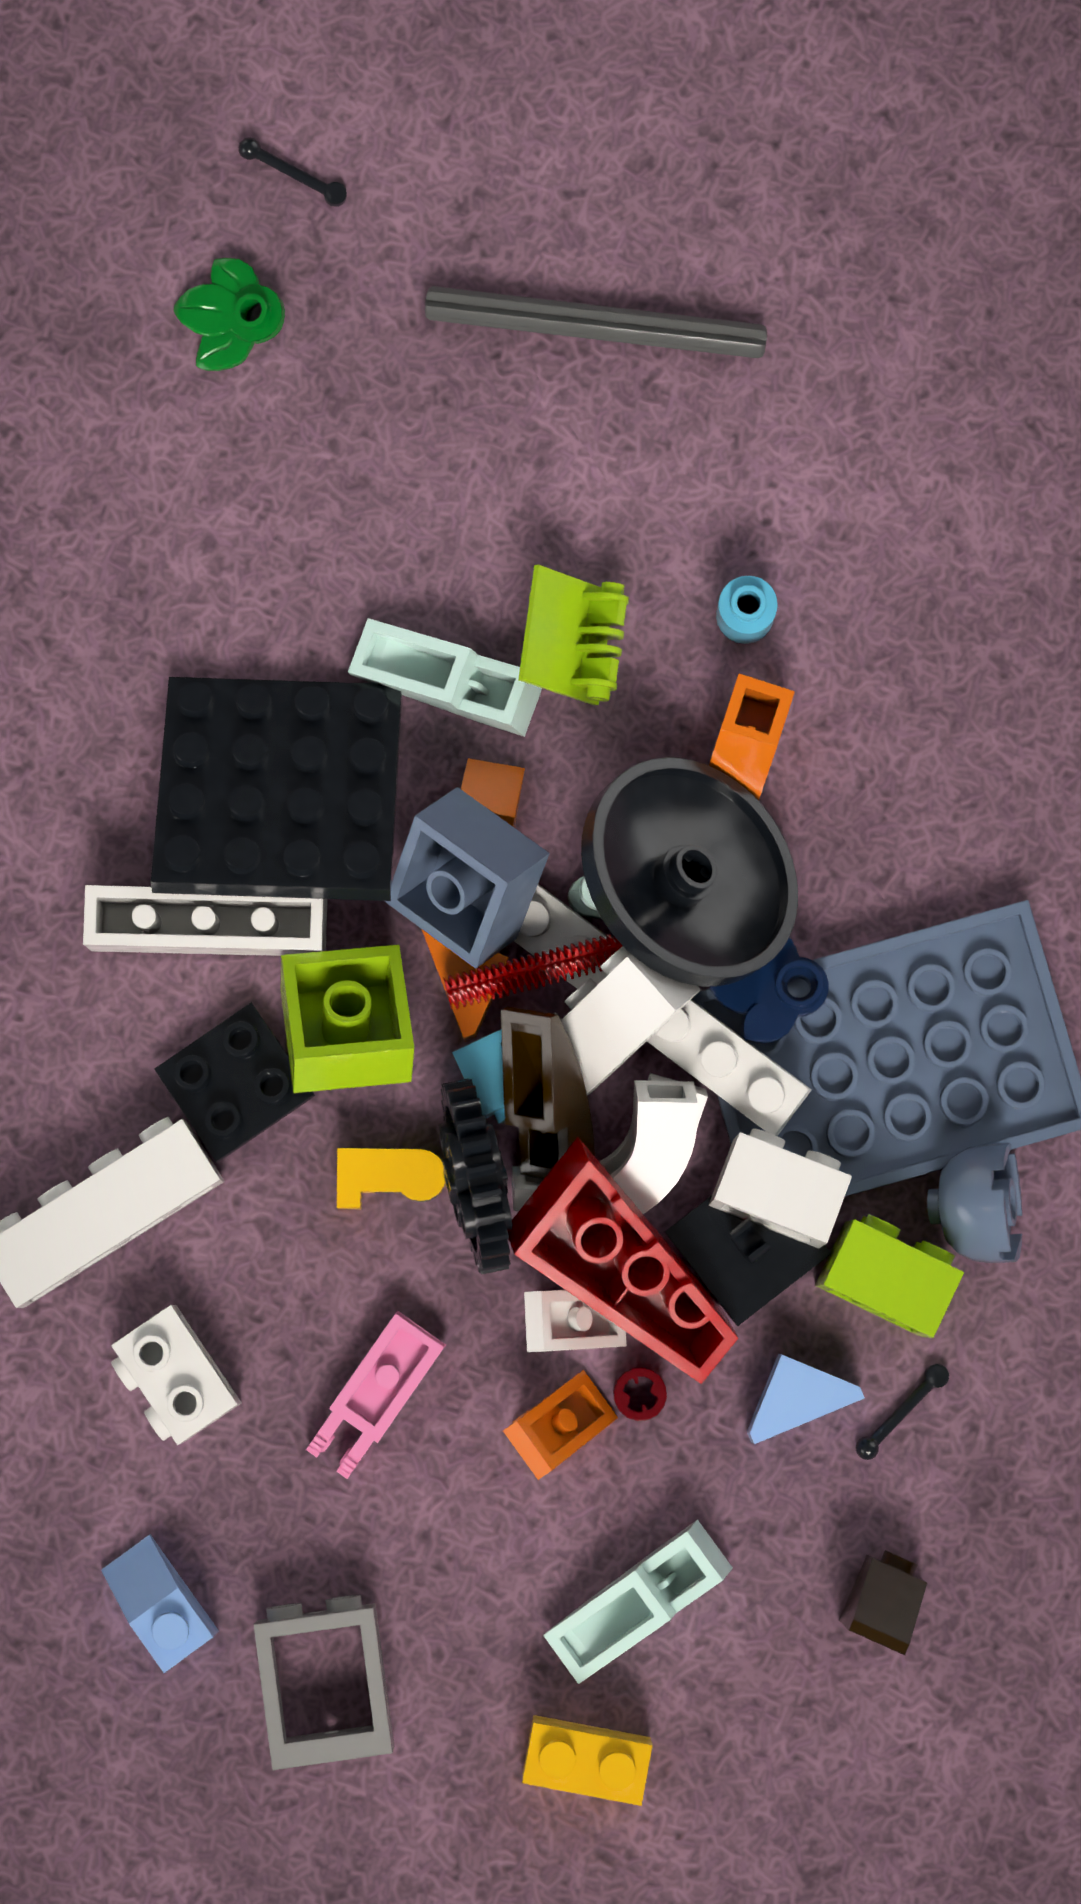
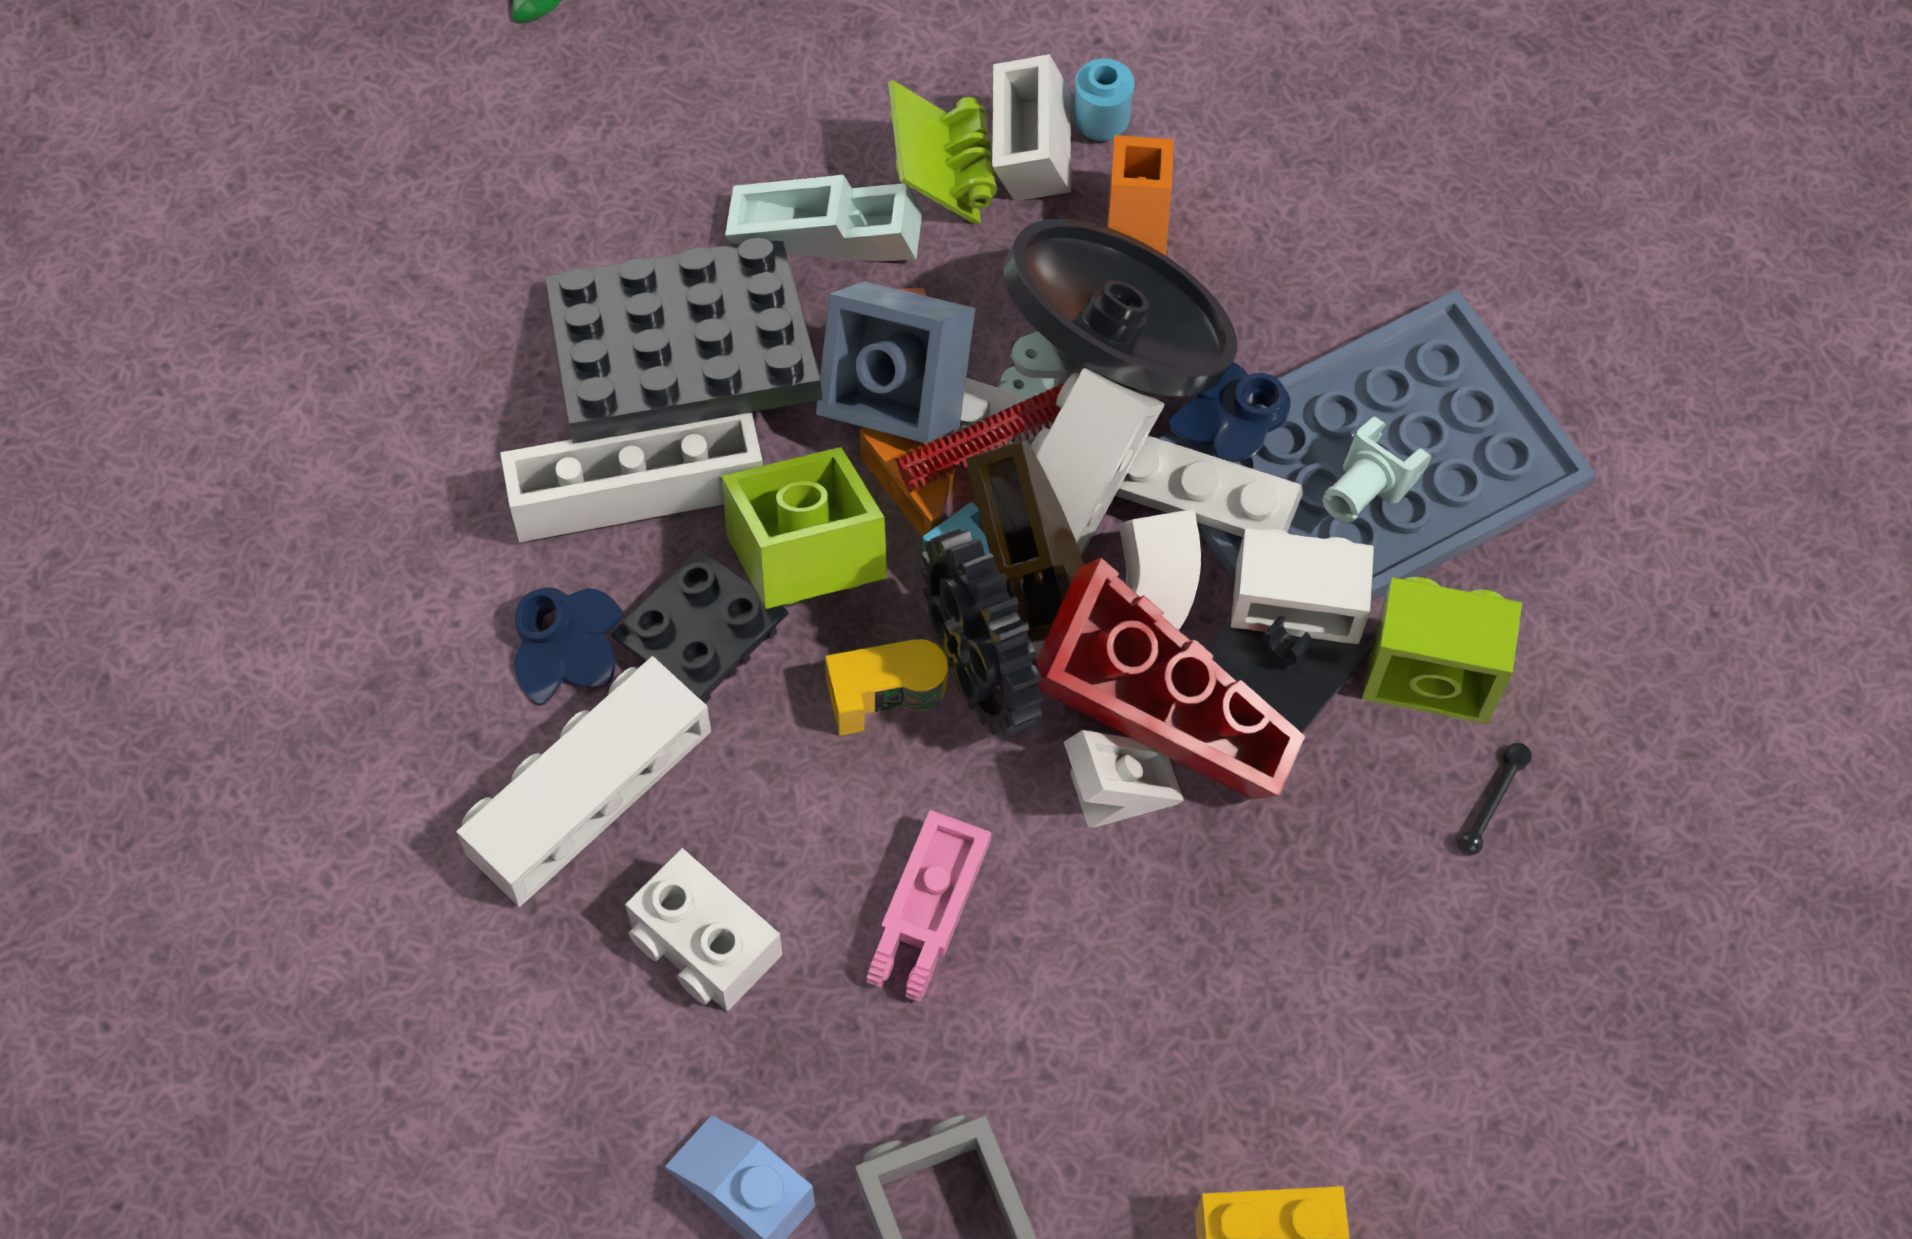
camera: 15 degrees left, 20 degrees down
(114, 1072) = (571, 646): none -> dark blue plate
(560, 1424) = (1134, 888): orange slope -> none
(638, 1602) = (1274, 1055): light aqua slope -> none
(657, 1389) = (1231, 835): dark red bush -> none
(667, 629) = (1031, 128): none -> white brick
(796, 1396) = (1383, 797): light blue slope -> none
(876, 1089) = (1371, 473): none -> light aqua piece
(885, 1601) = (1545, 986): dark brown slope -> none
(979, 1203) = (1509, 559): sand blue cylinder -> none

